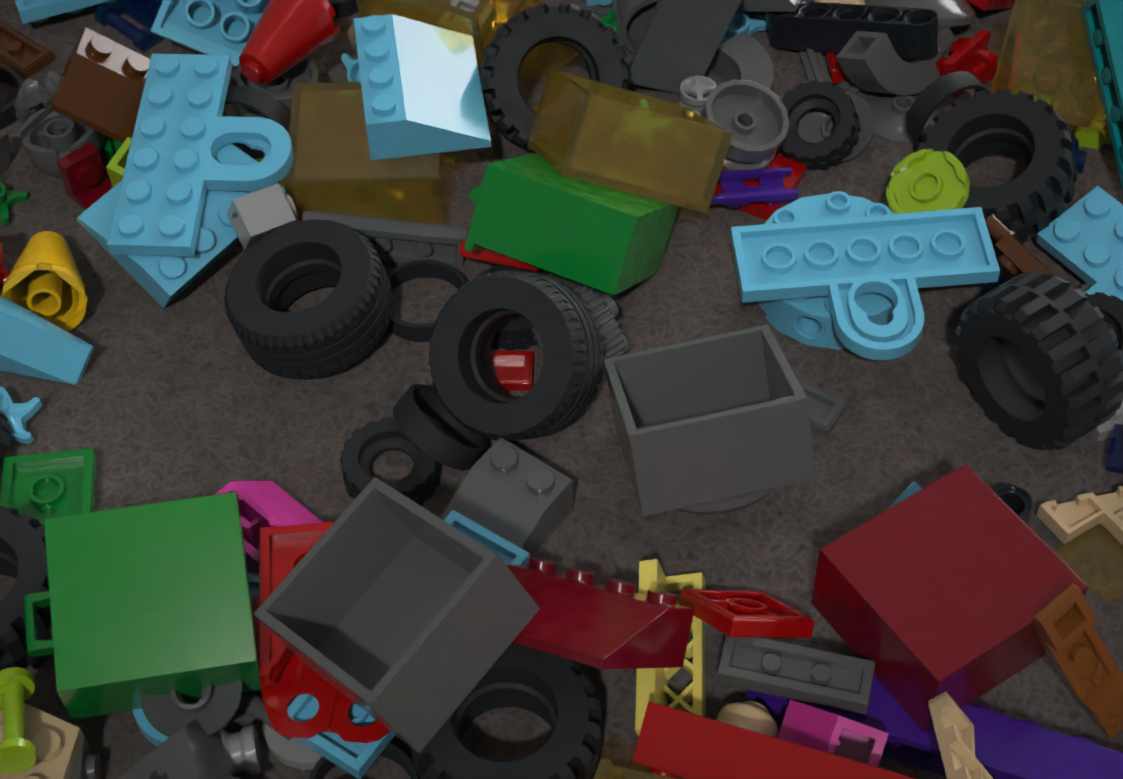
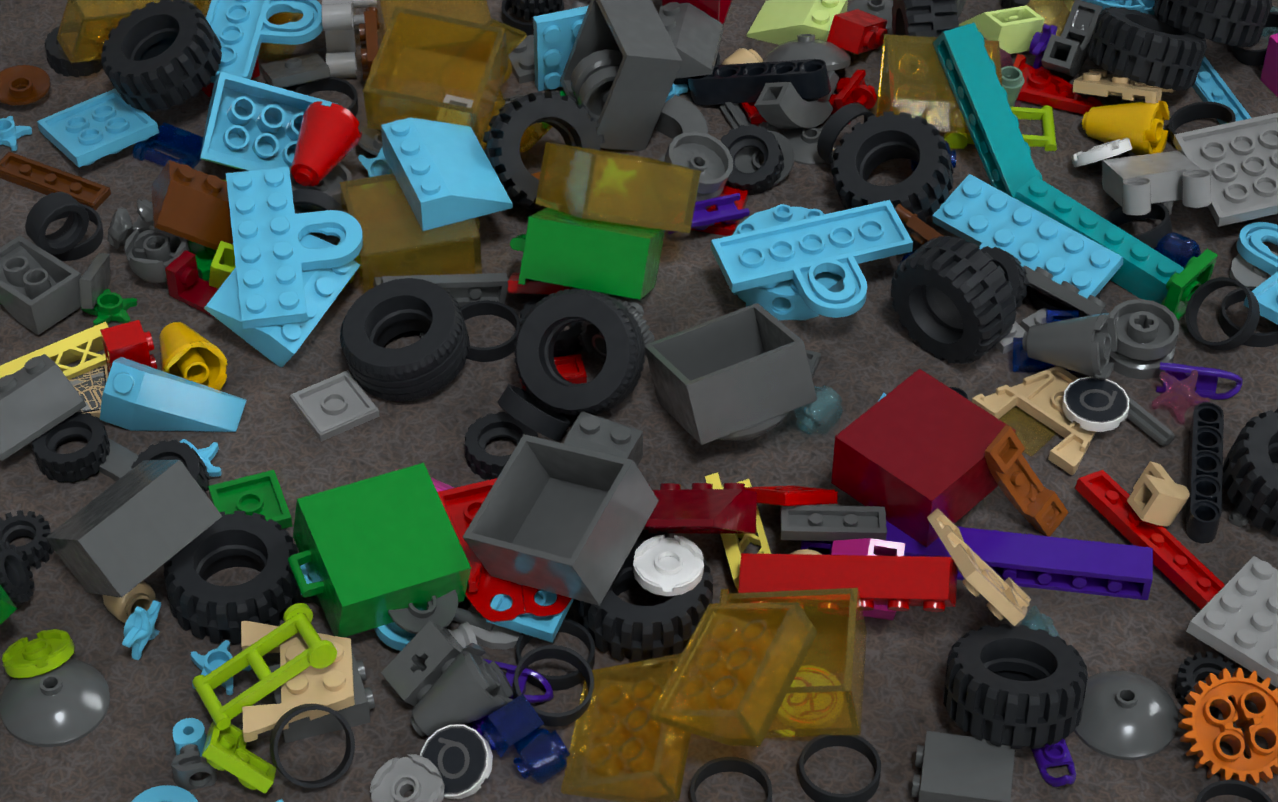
camera: 15 degrees left, 5 degrees down
(205, 371) = (334, 405): none -> light grey tile
(260, 213) = (350, 283): light grey brick -> none
(539, 702) = (668, 565): none -> white tile
(695, 91) = (651, 146): light grey wheel -> none
(829, 491) = (821, 414): none -> clear light blue head
(928, 183) = (846, 188): lime tile -> none

